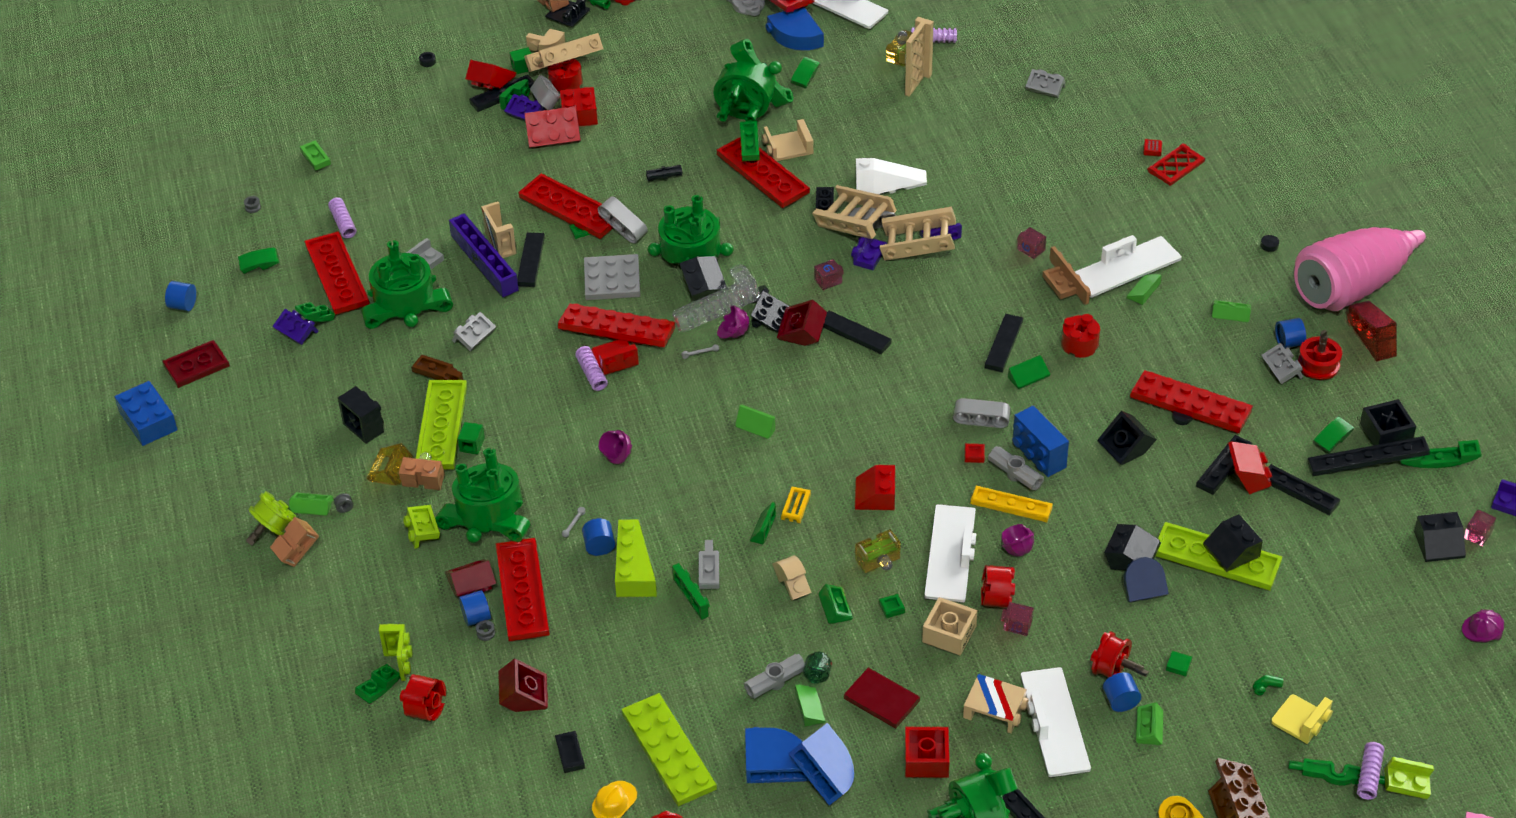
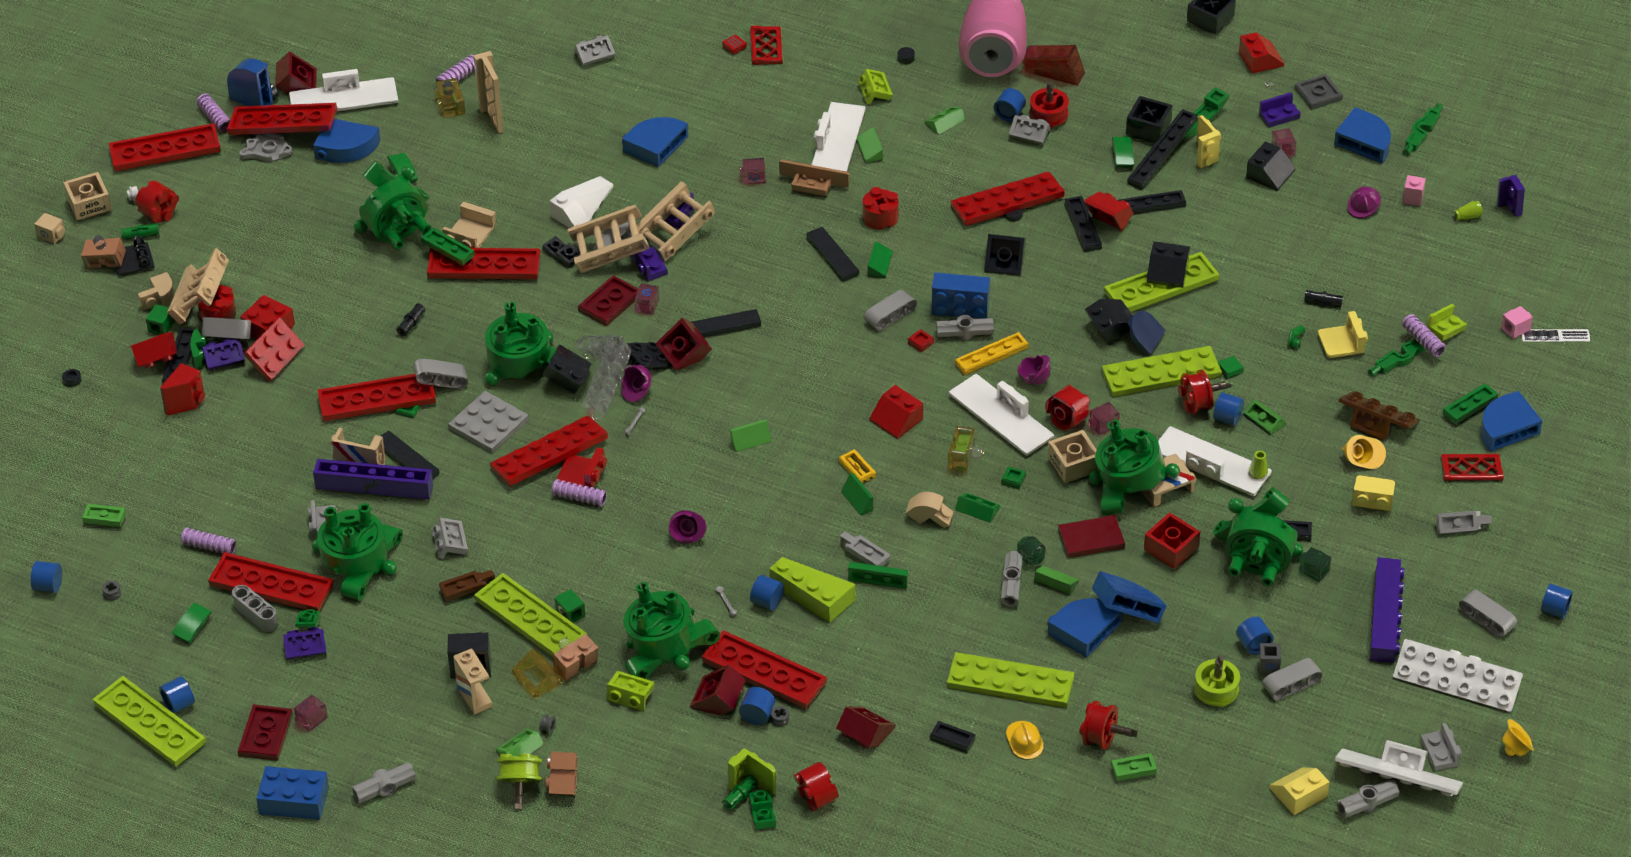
camera: 50 degrees left, 0 degrees up
(147, 301) = (149, 721): none -> lime plate
(202, 453) = (383, 782): none -> light grey piece
(227, 165) = (46, 576): none -> blue piece
(230, 372) = (310, 713): none -> clear pink brick
(302, 280) = (255, 608): none -> light grey beam
(330, 439) = (468, 677): none -> tan panel
(378, 658) = (740, 792): none -> green pin
(461, 111) = (182, 390): none -> red slope
(803, 257) = (609, 300): none -> dark red tile
(966, 663) = (1128, 463): none -> green piece
(997, 172) = (655, 139): none -> blue brick
(1076, 755) = (1258, 466): none -> lime cone
(1109, 614) = (1159, 370): none -> lime plate
(1212, 247) = (873, 85): none -> lime bracket
(1335, 673) = (1323, 298): none -> black pin
(1402, 479) = (1208, 143): none -> light yellow bracket

